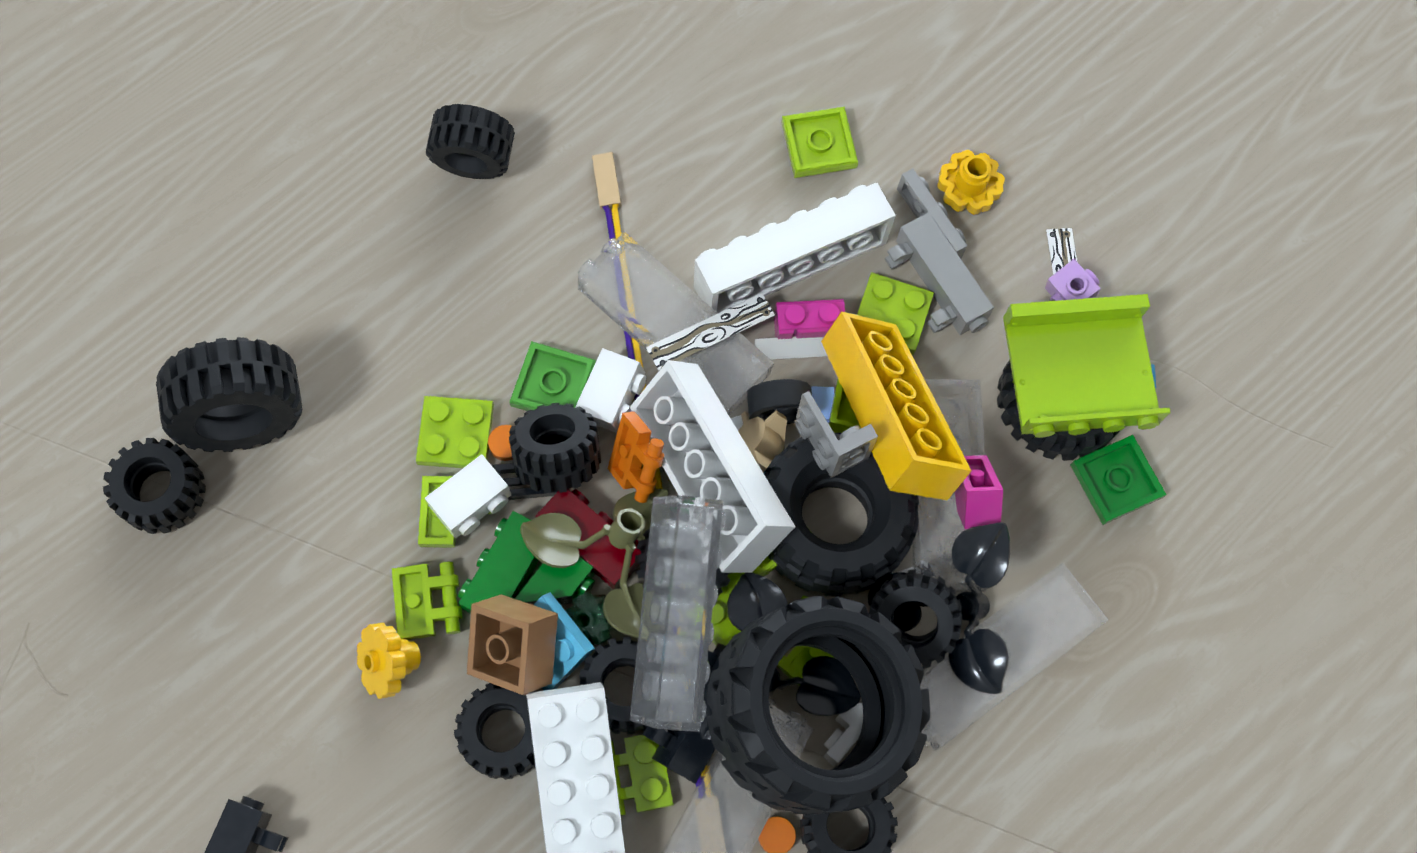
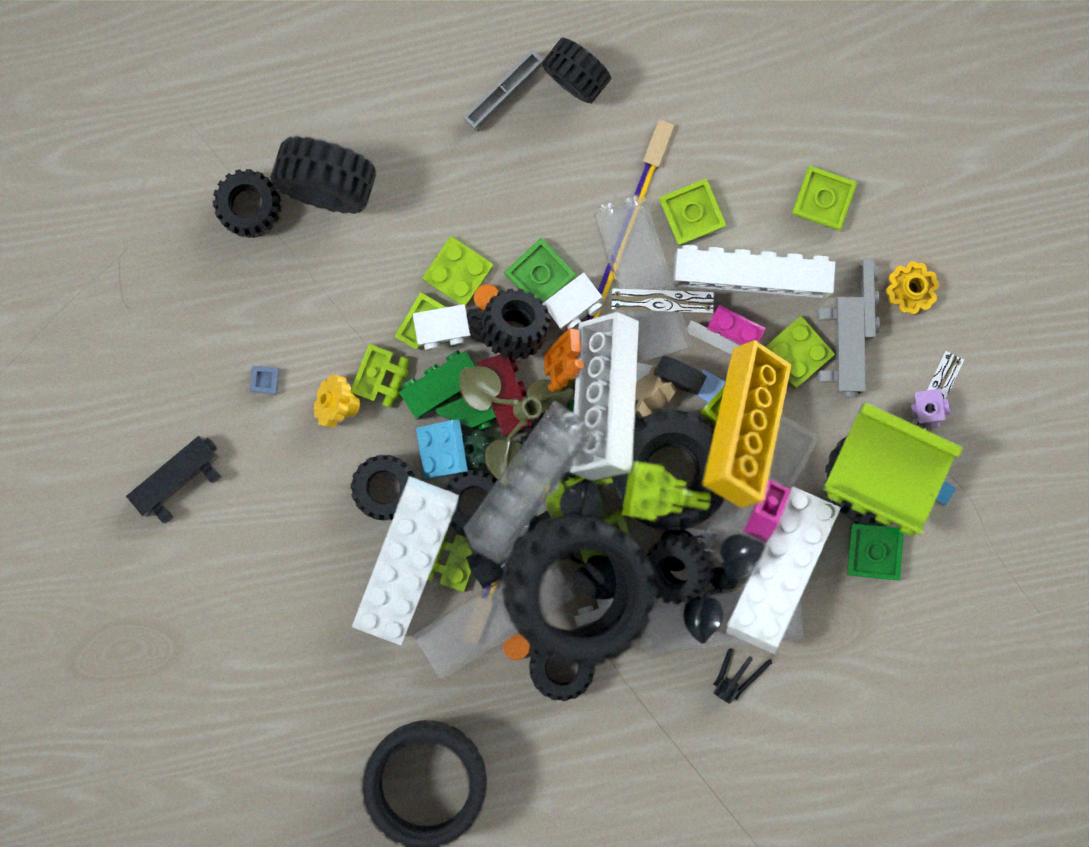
camera: 35 degrees right, 15 degrees up
(283, 685) = (264, 380): none -> sand blue tile
(399, 211) = (503, 90): none -> light grey piece
(512, 644) = (417, 440): medium nougat brick -> none
(685, 227) = (692, 212): none -> lime plate
(829, 452) = (697, 440): light grey bracket -> none
(839, 536) = (653, 492): none -> lime brick
(1044, 572) = (783, 571): none -> white brick
(1059, 735) = (728, 688): none -> black plant

